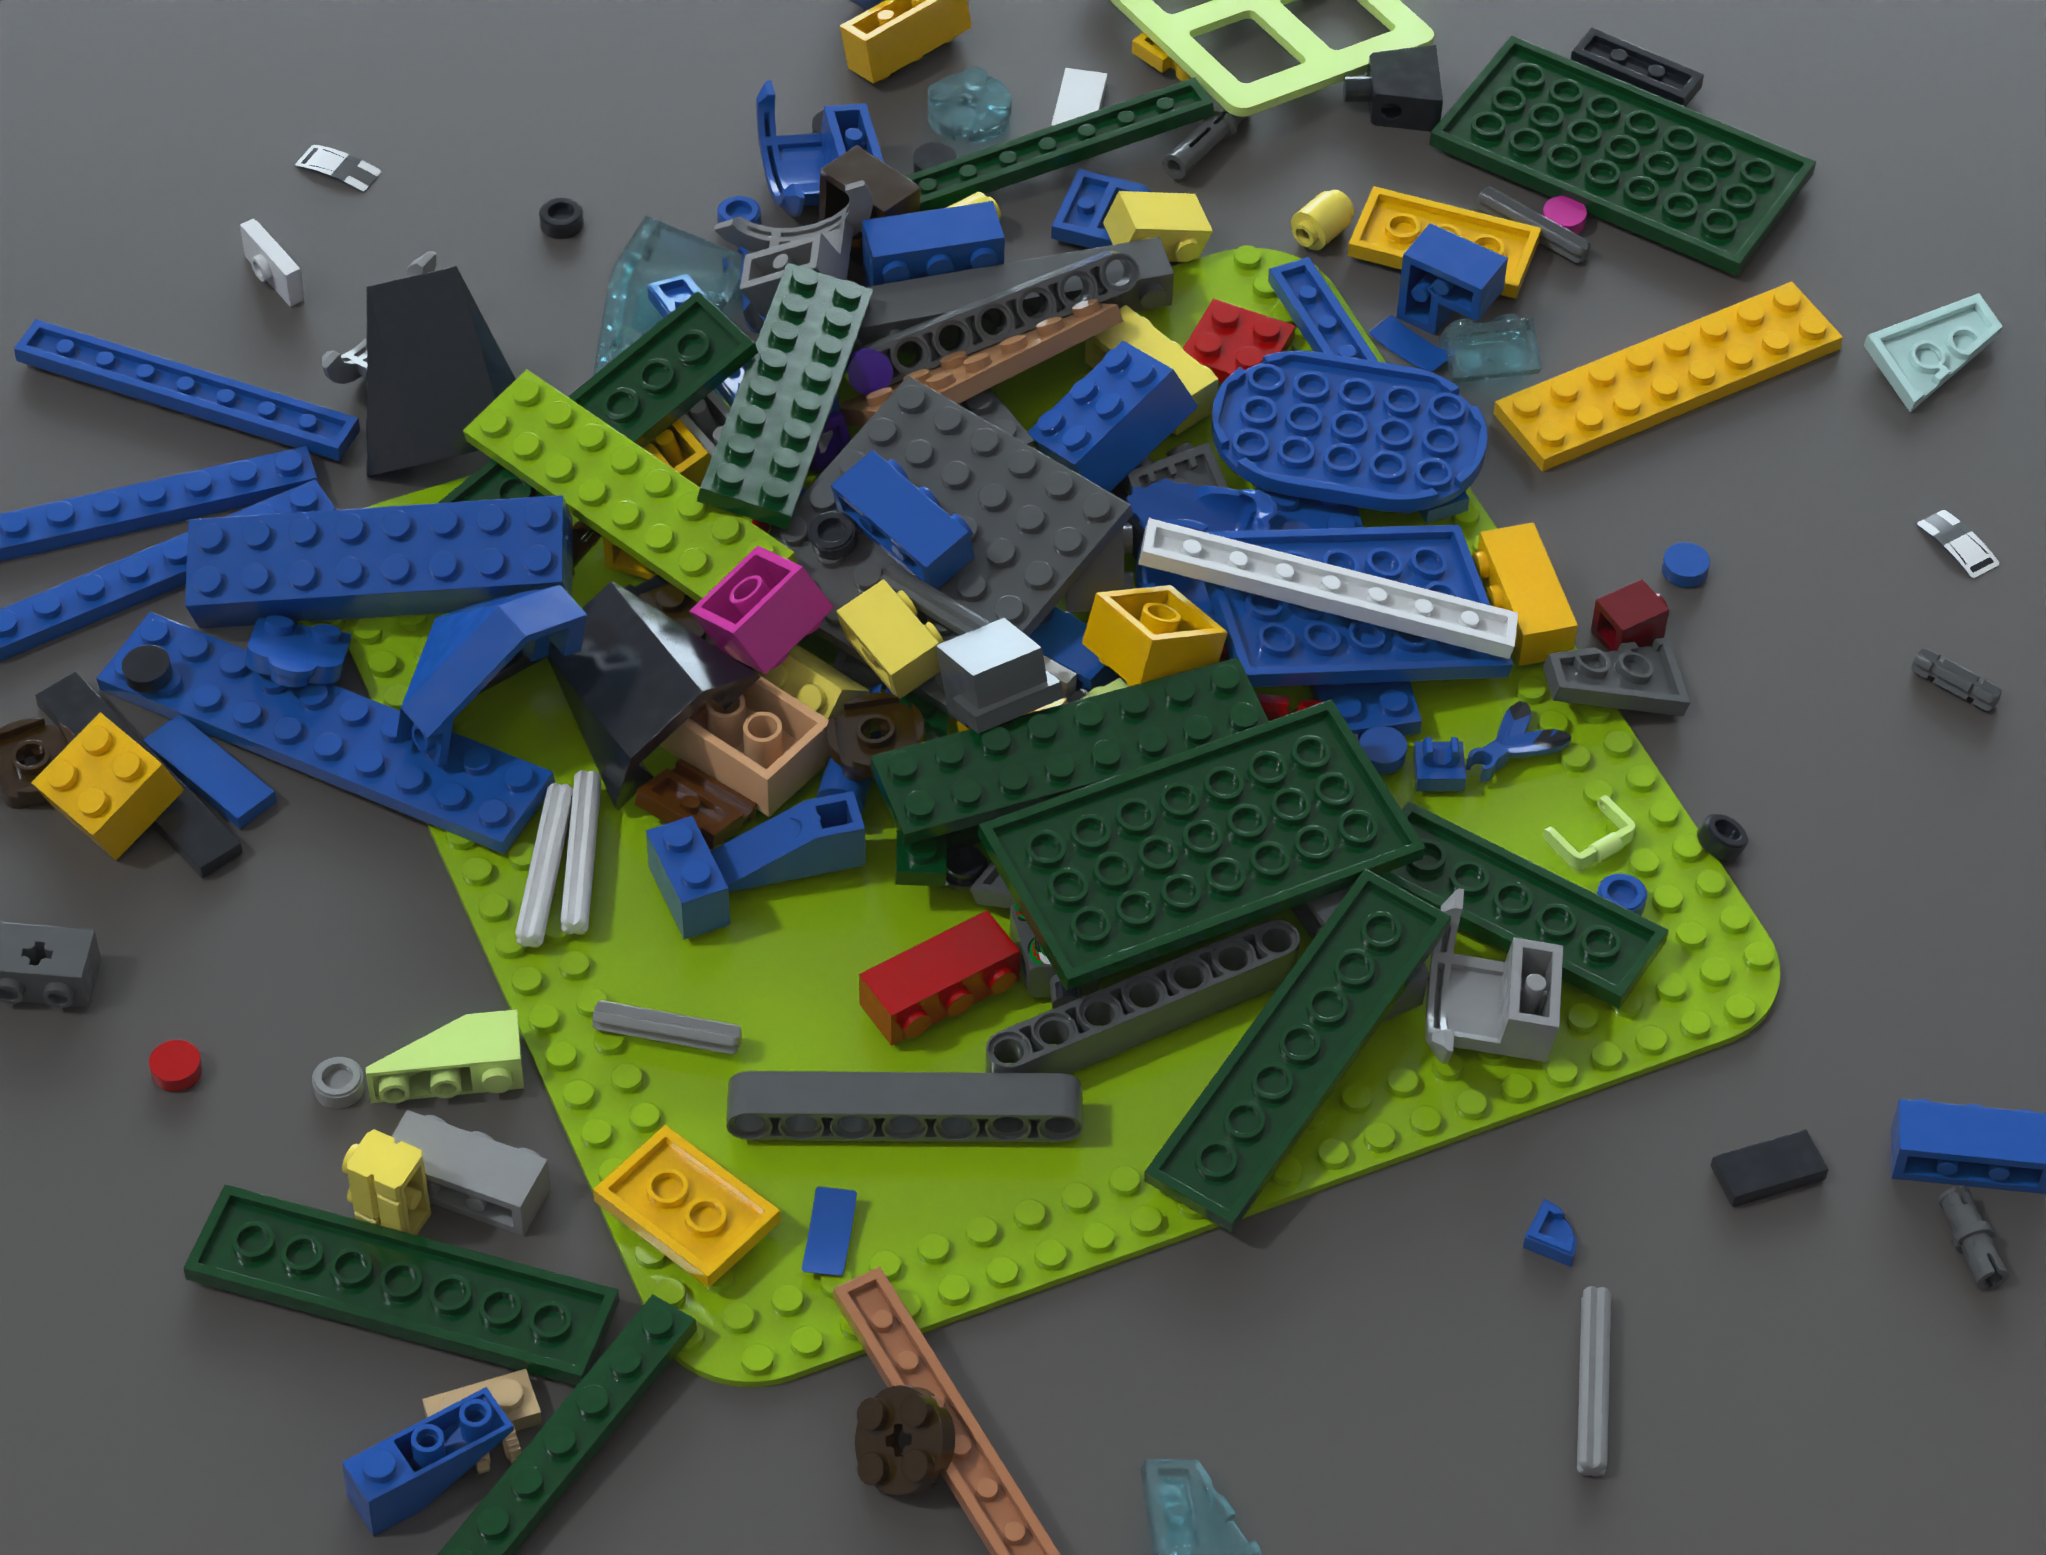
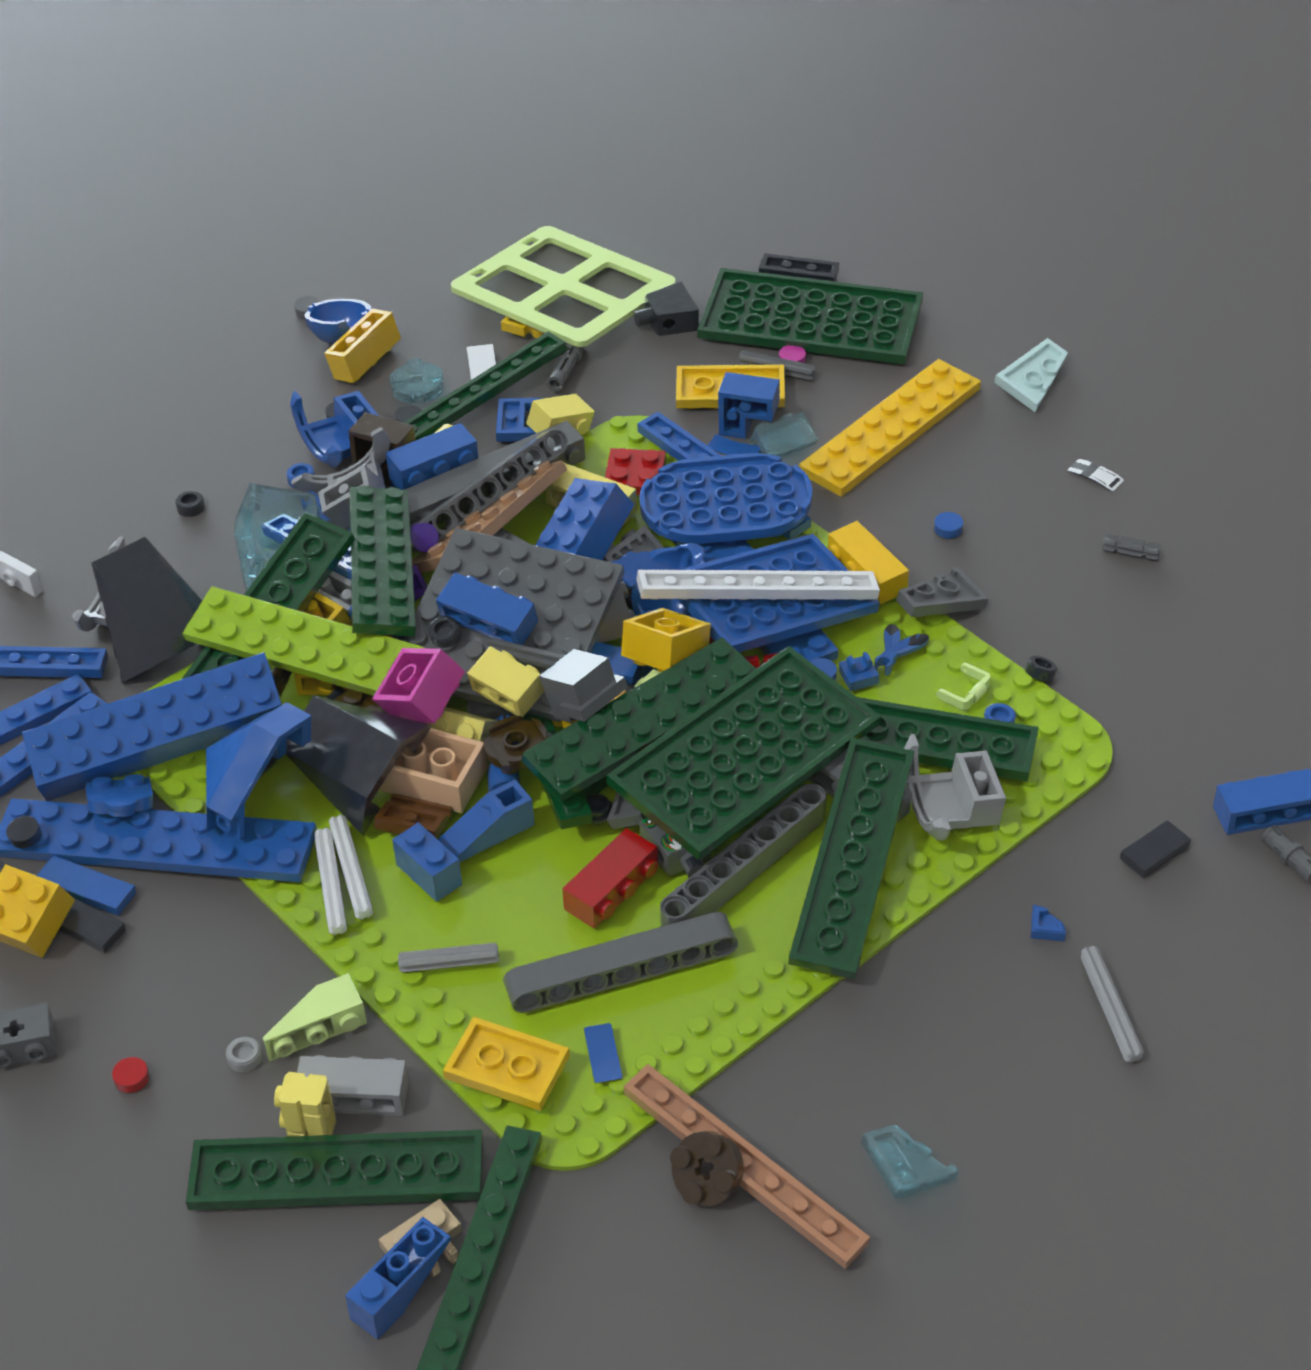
camera: 15 degrees left, 5 degrees down
(340, 166) = (37, 508): sticker -> none
(1322, 219) = (654, 391): light yellow brick -> none
(1630, 616) = (930, 560): dark red brick -> none

